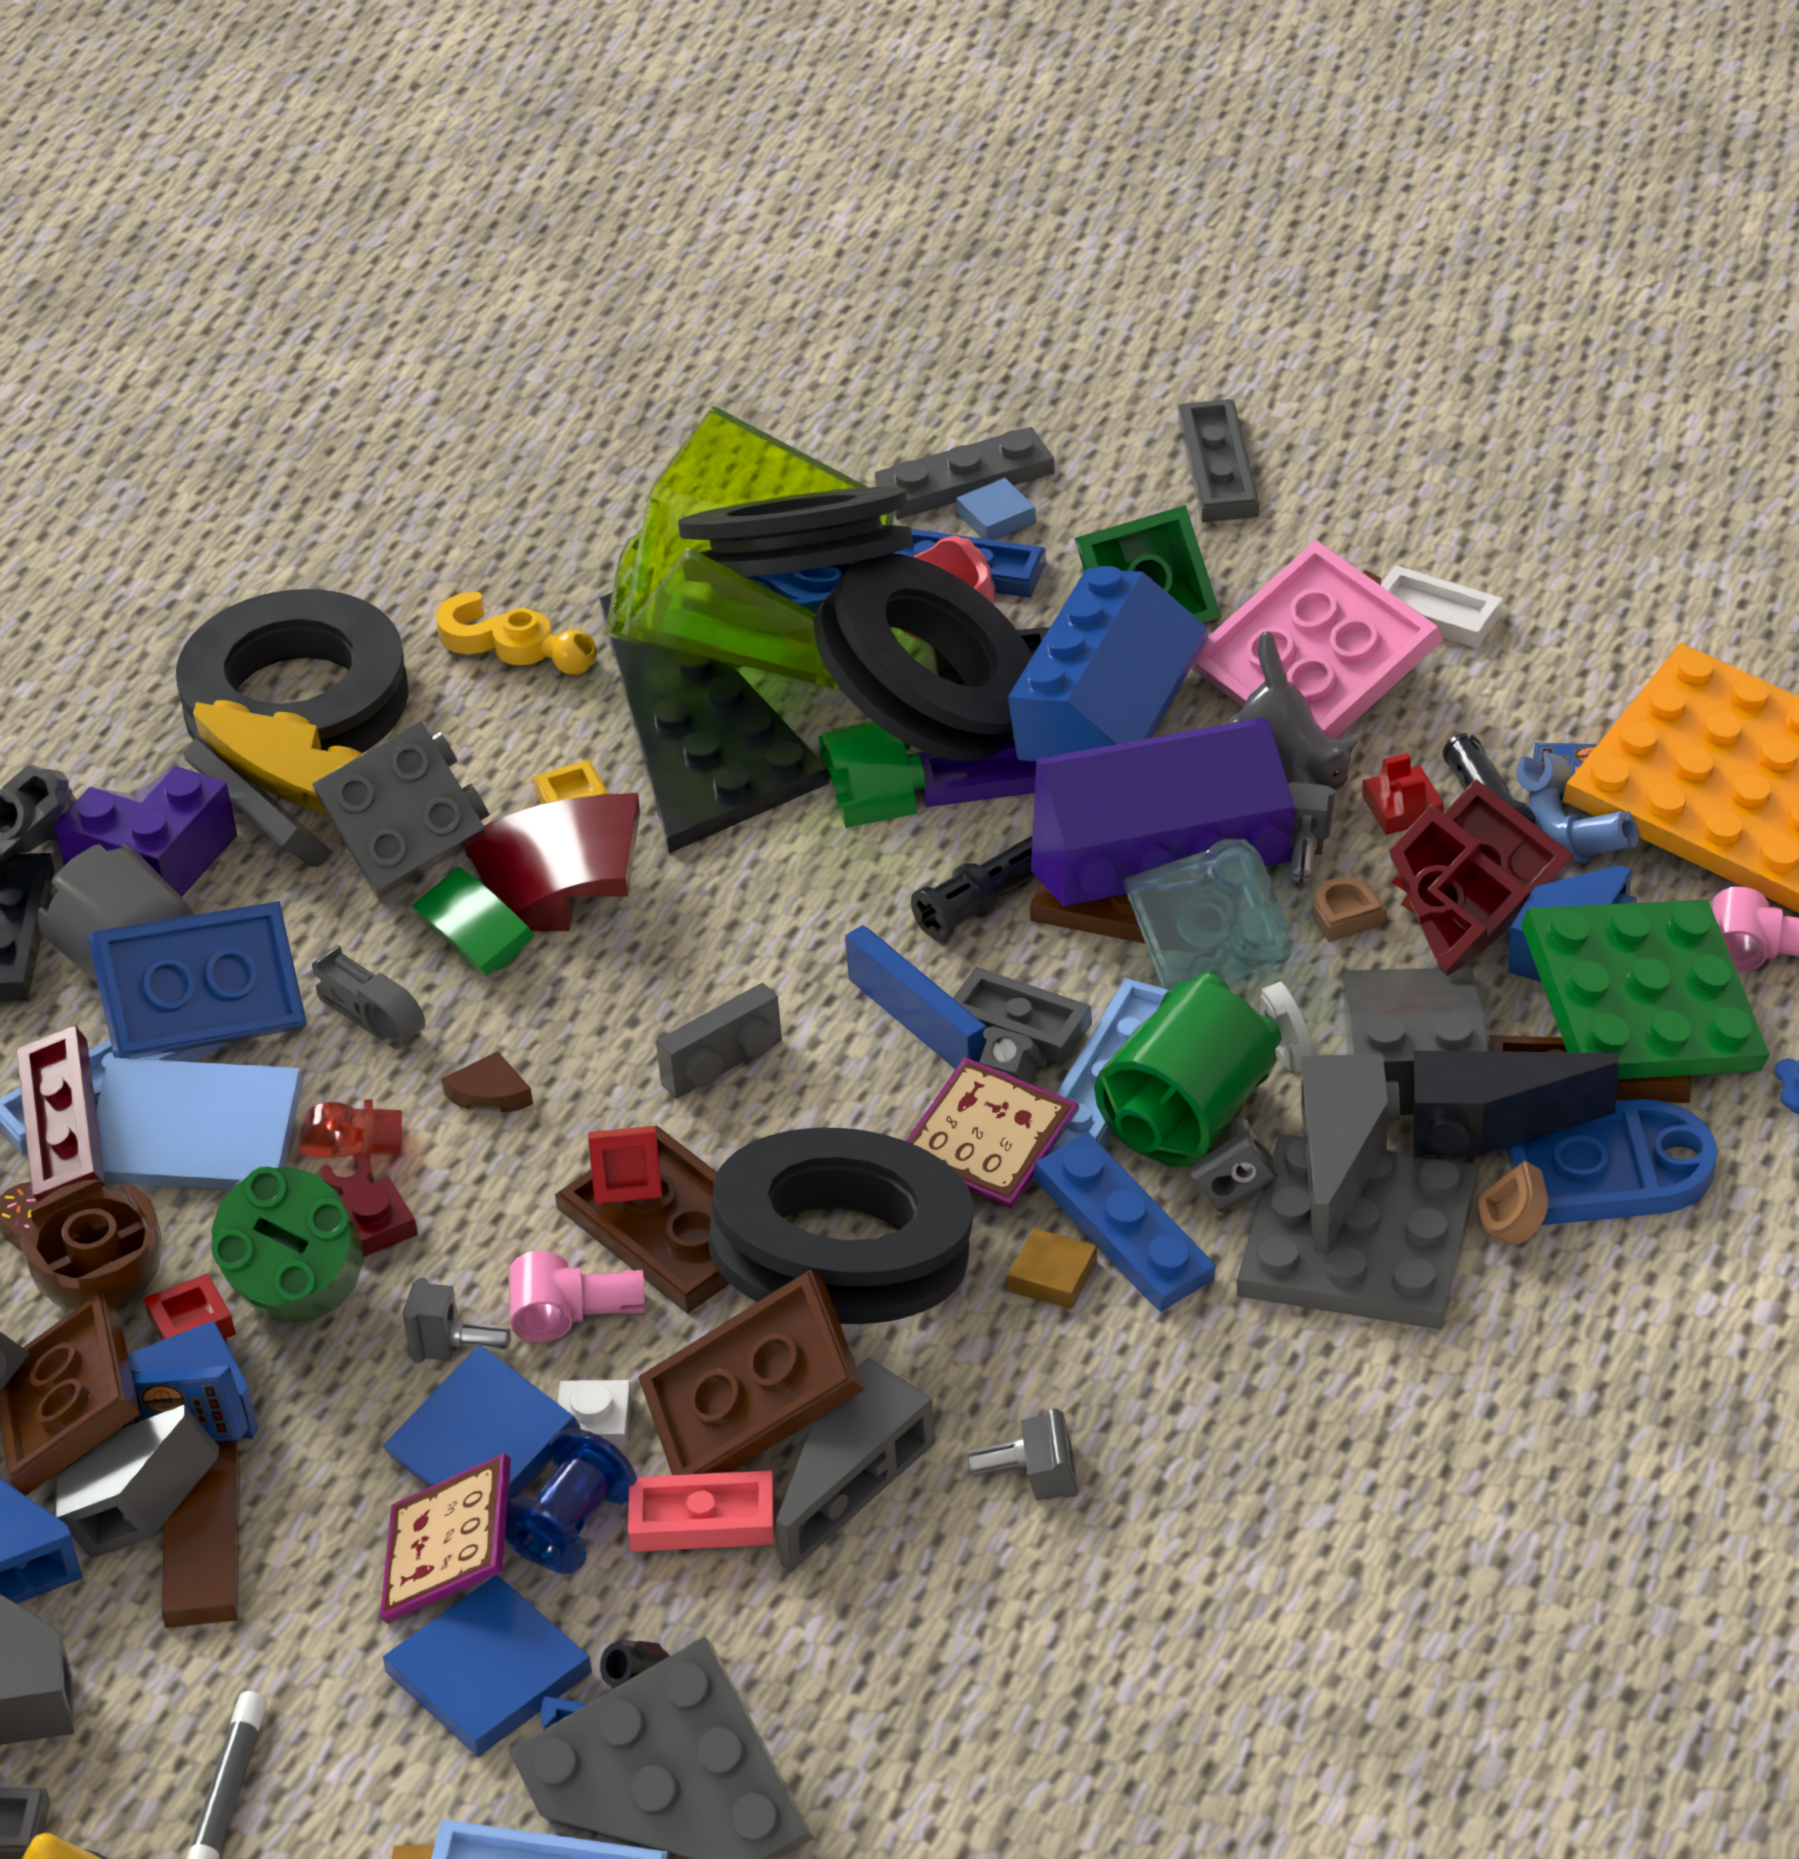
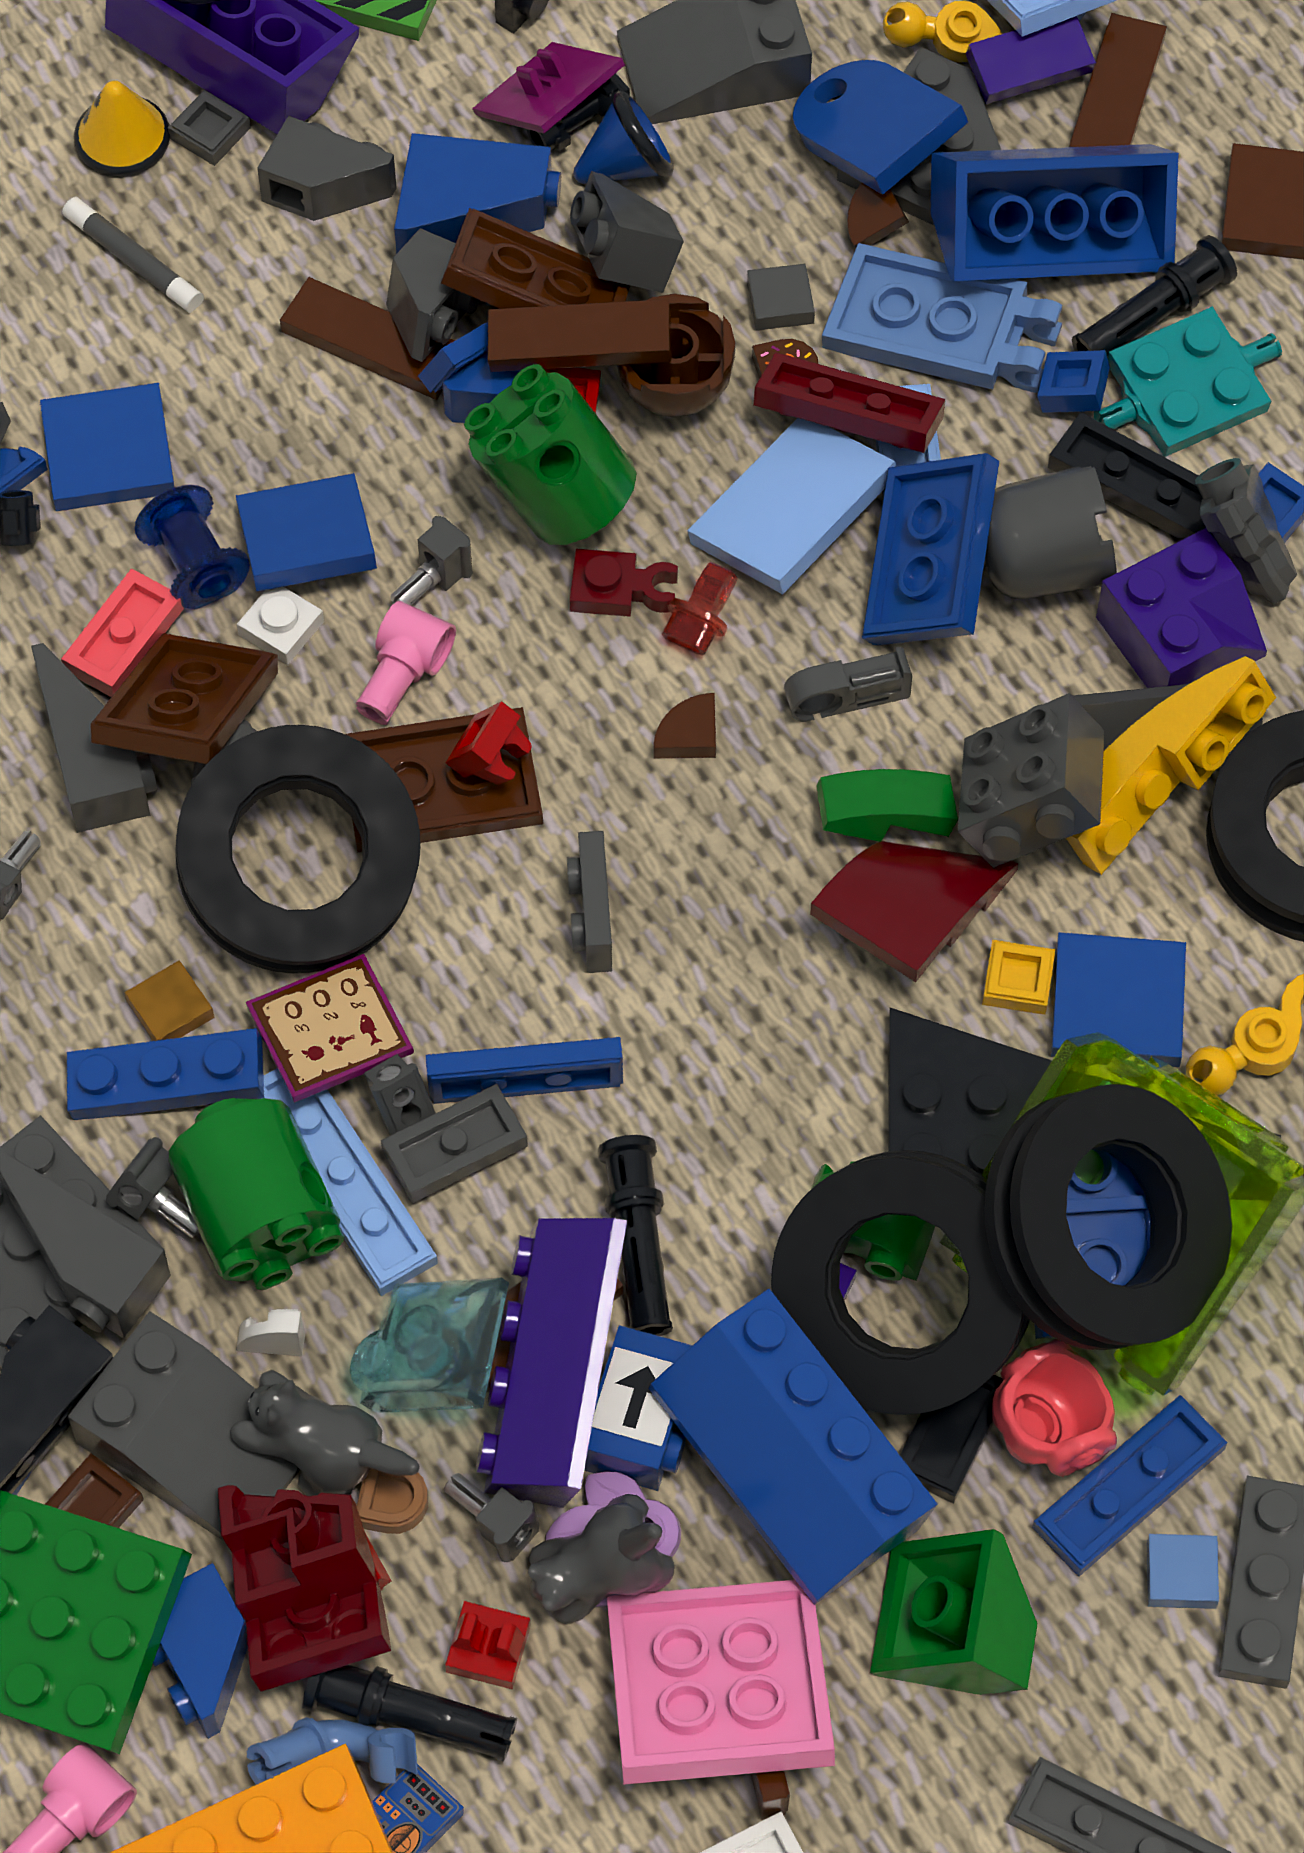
camera: 120 degrees right, 20 degrees up
(132, 1288) = (579, 335): none -> reddish brown tile
(446, 1538) = (220, 458): piece -> none
(546, 730) = (1121, 990): none -> blue tile
(1344, 934) = (326, 1441): none -> dark grey animal

